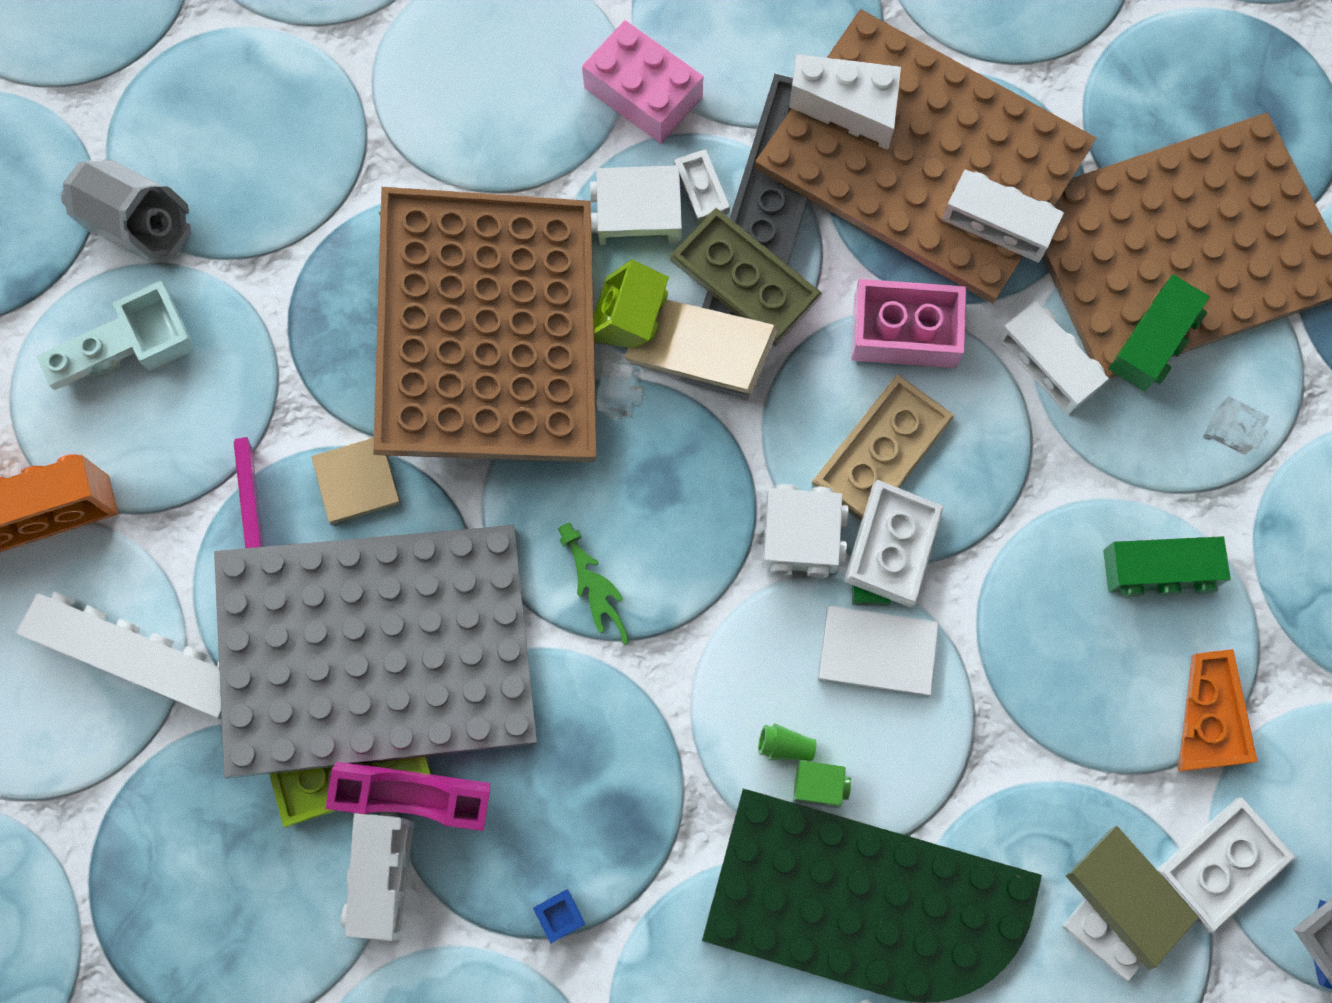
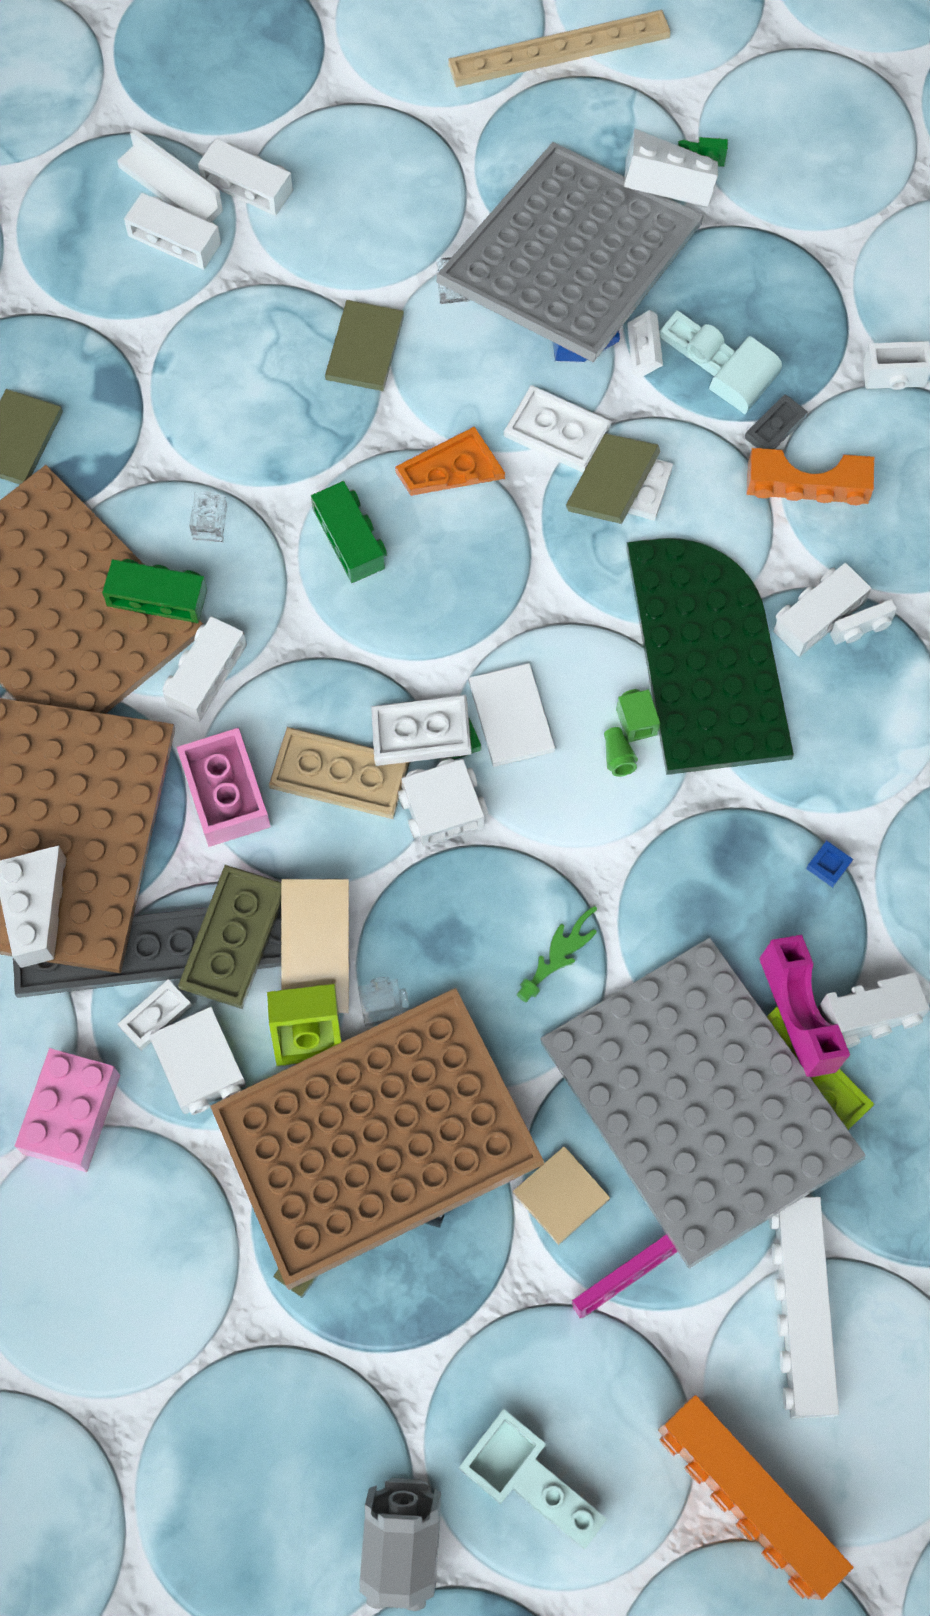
camera: 115 degrees left, 5 degrees down
(1002, 215) = (100, 737): white brick -> none

